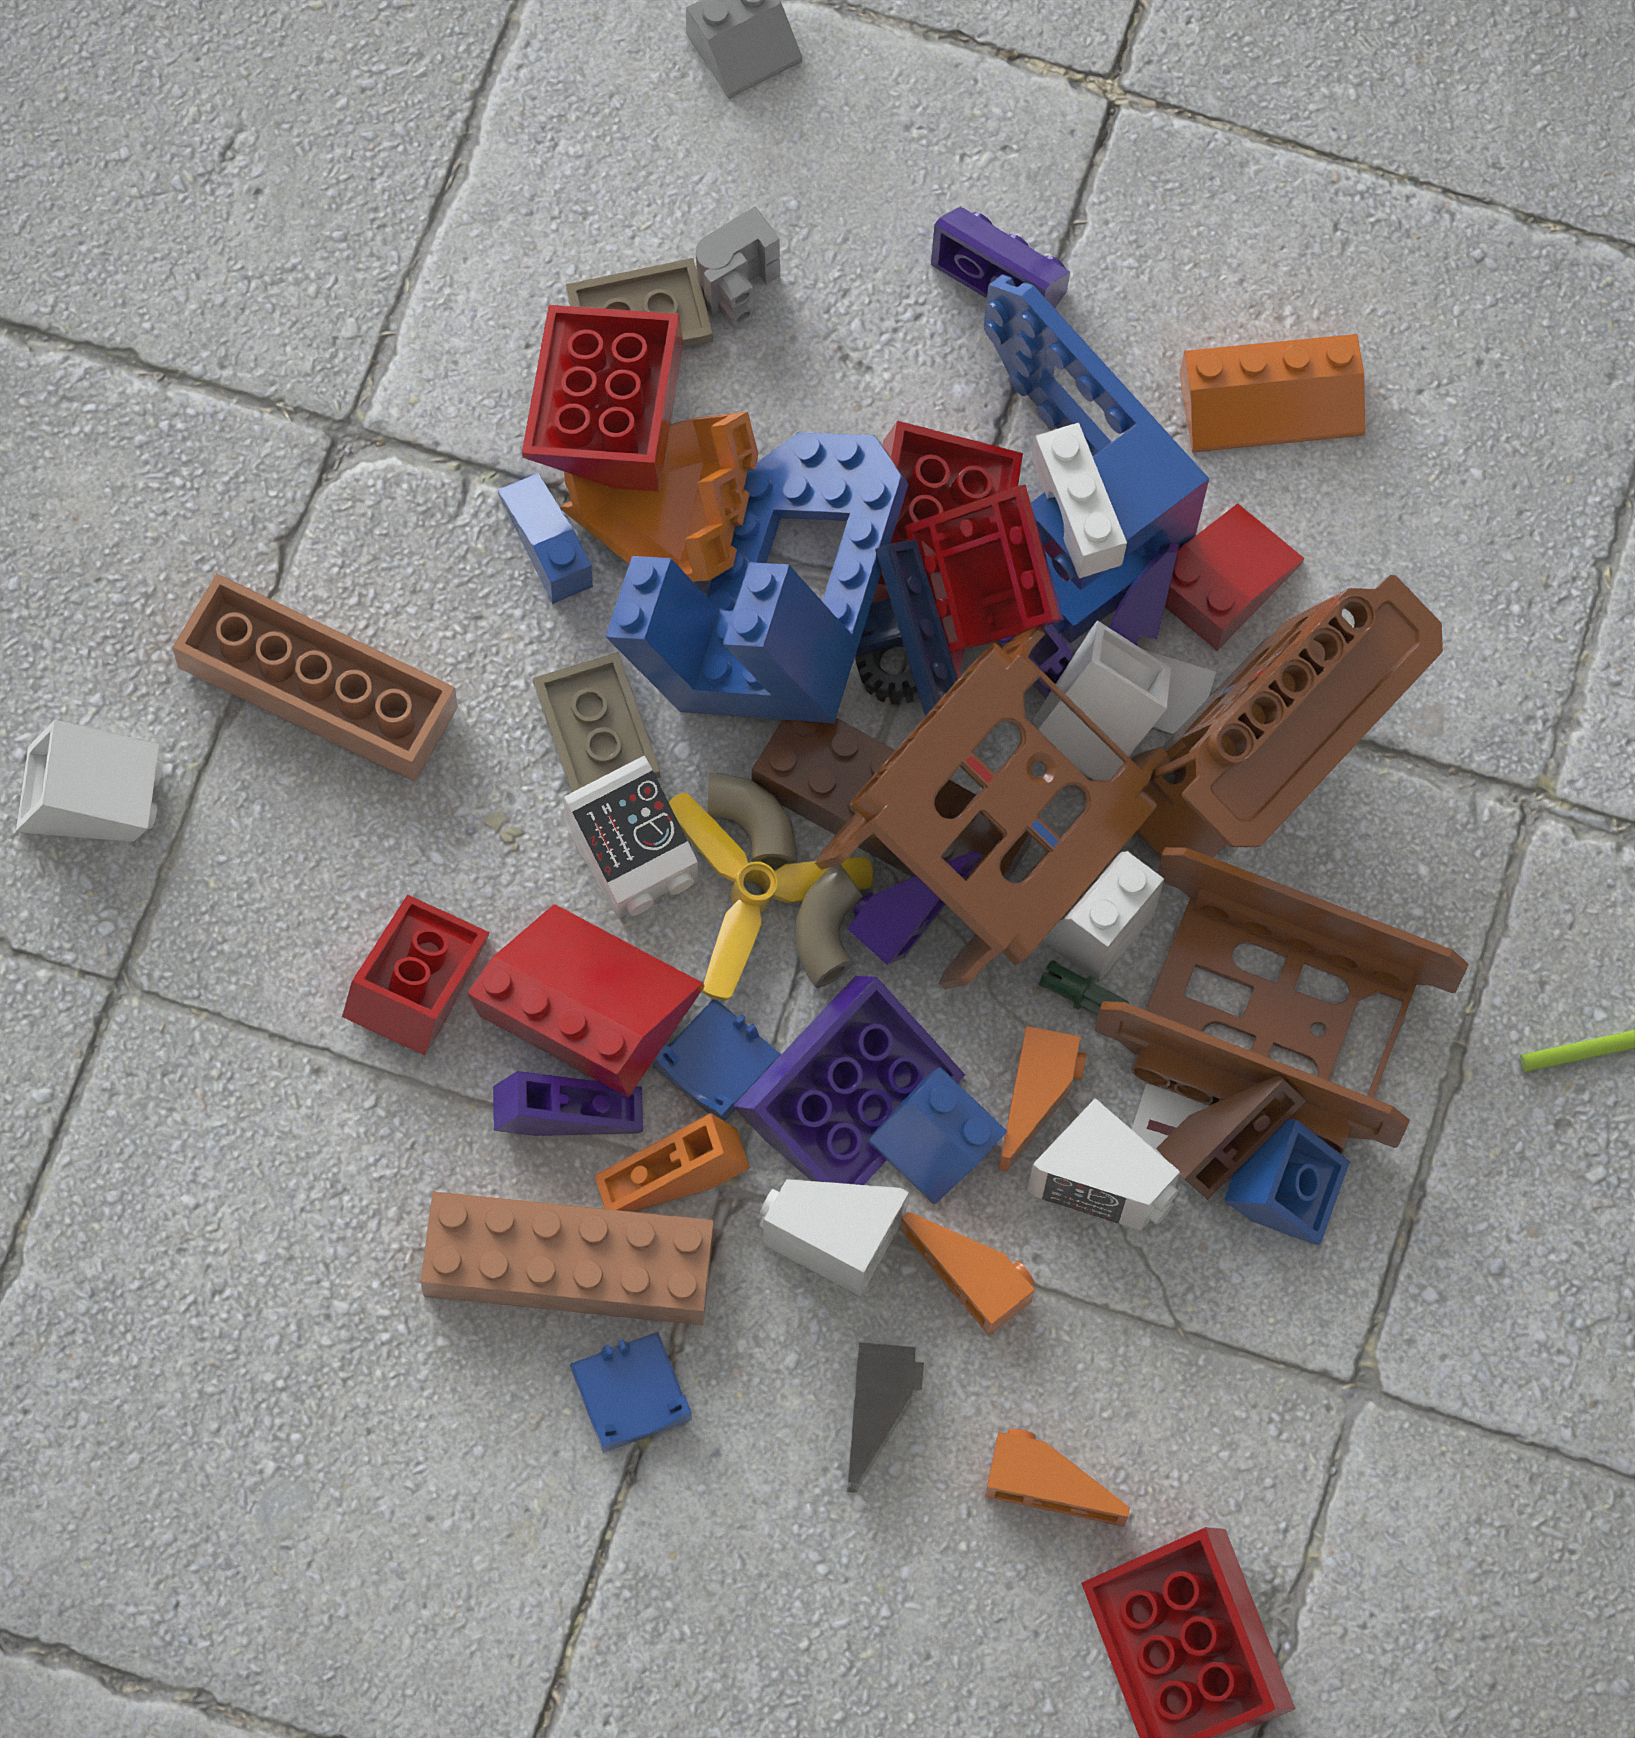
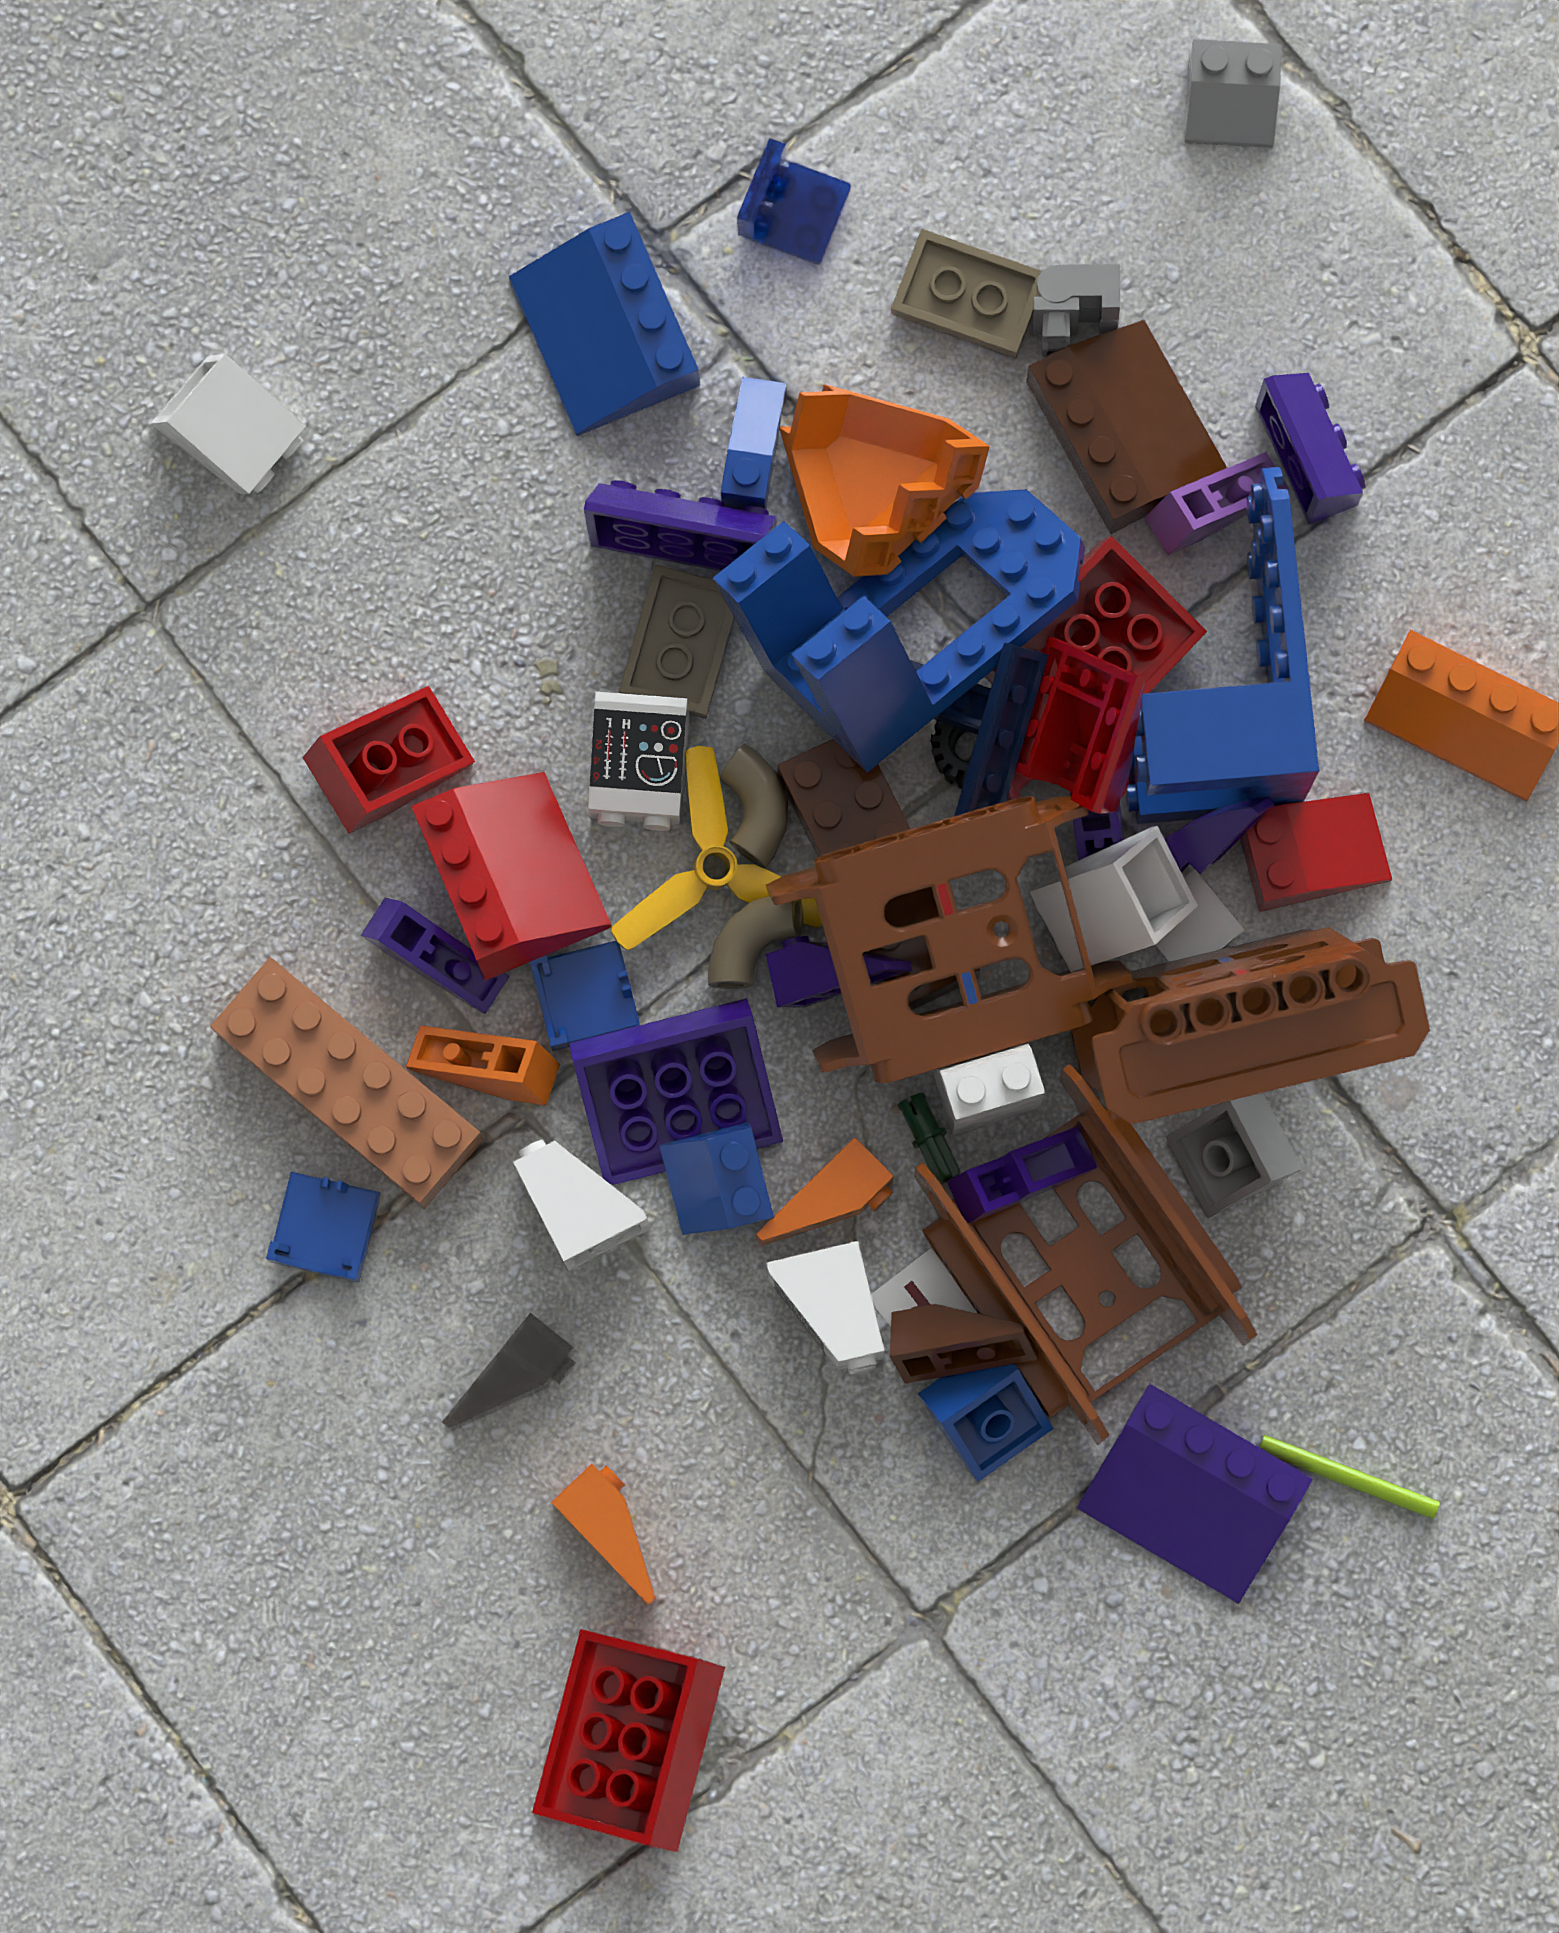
camera: 40 degrees right, 10 degrees up
(315, 677) = (474, 449): nougat brick -> none
(356, 515) = (605, 325): none -> blue slope
(446, 331) = (791, 206): none -> clear blue bracket
(532, 638) = (671, 527): none -> dark purple slope
(605, 394) = (876, 354): red slope -> none
(837, 340) = (1123, 422): none -> reddish brown slope
(951, 357) = (1206, 504): none -> medium lavender slope
(975, 1273) = (671, 1321): orange slope -> none
(1087, 514) = (1185, 720): white arch -> none
(1184, 965) = (1021, 1174): none -> dark purple slope
(1336, 846) = (1233, 1152): none -> light grey slope
(1501, 1134) = (1194, 1493): none -> dark purple slope

